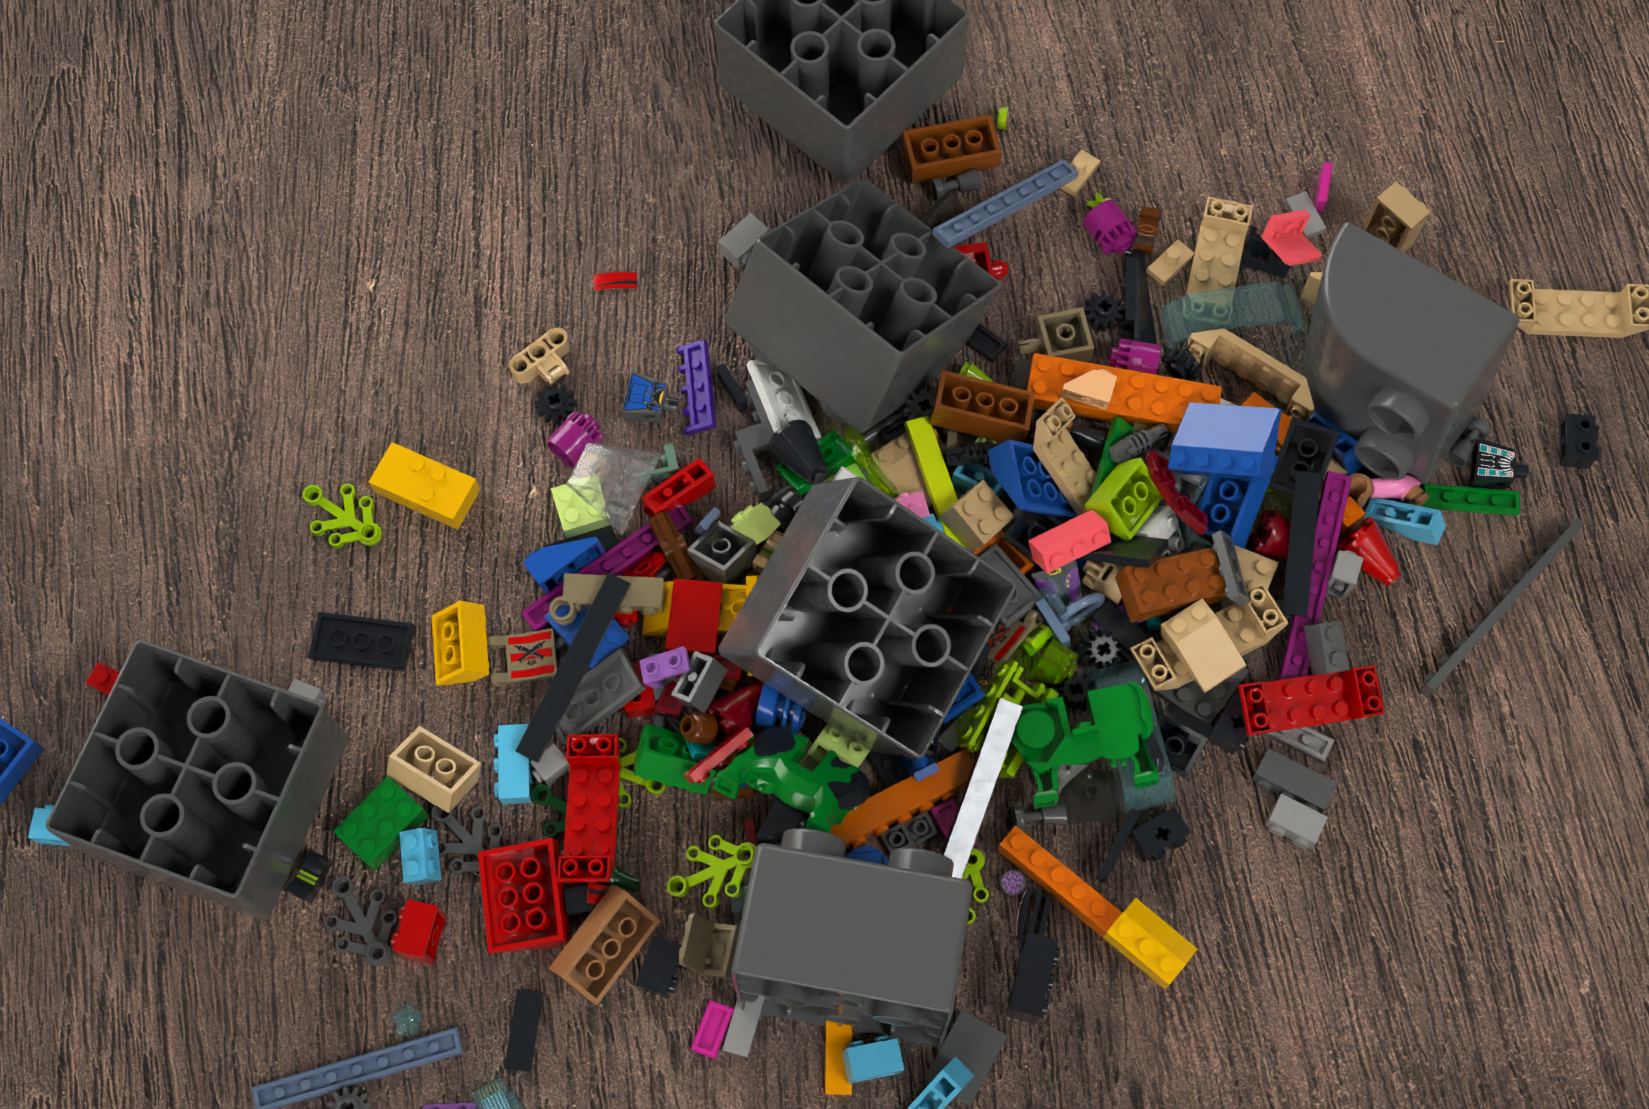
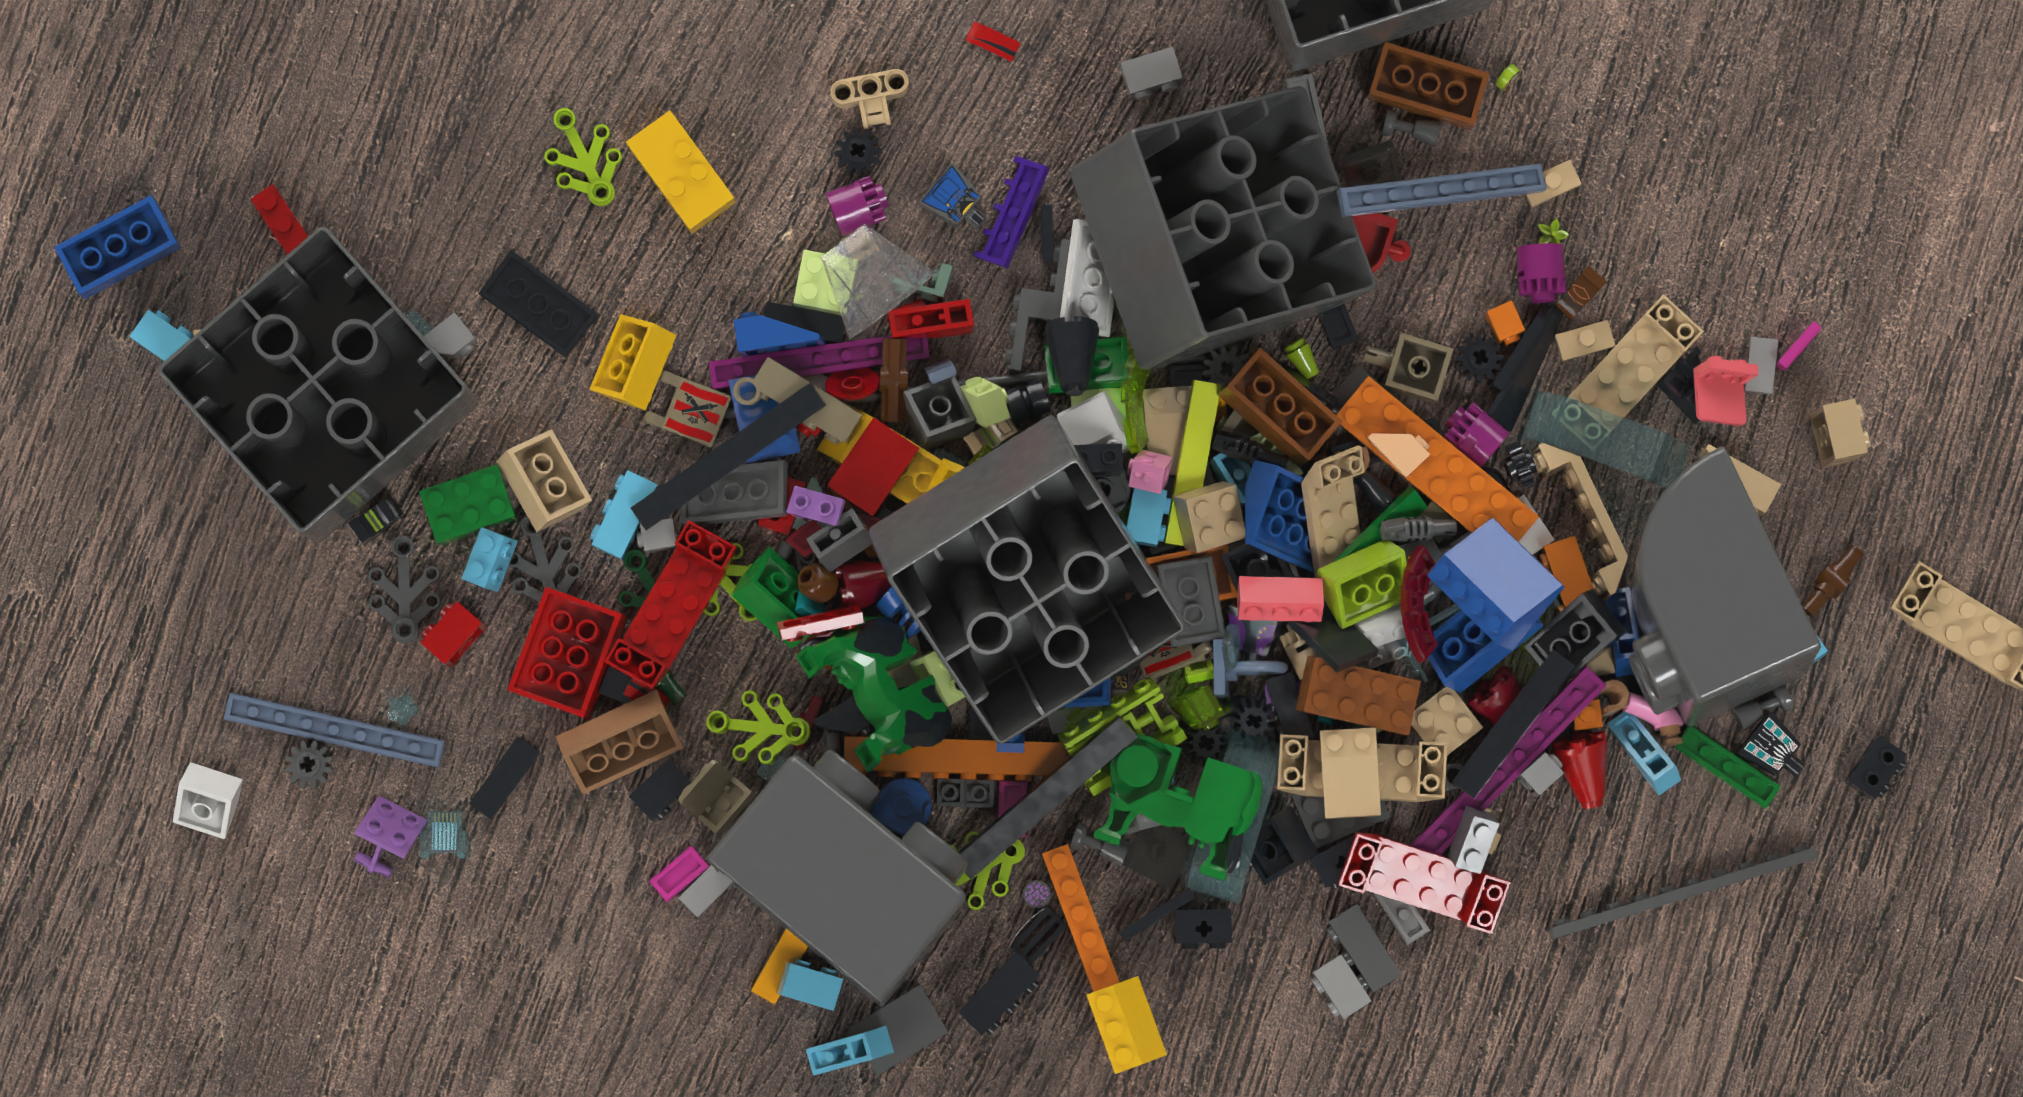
camera: 25 degrees right, 15 degrees up
(1106, 277) = (1505, 323): none -> orange brick
(1230, 568) = (1423, 712): dark grey plate -> none

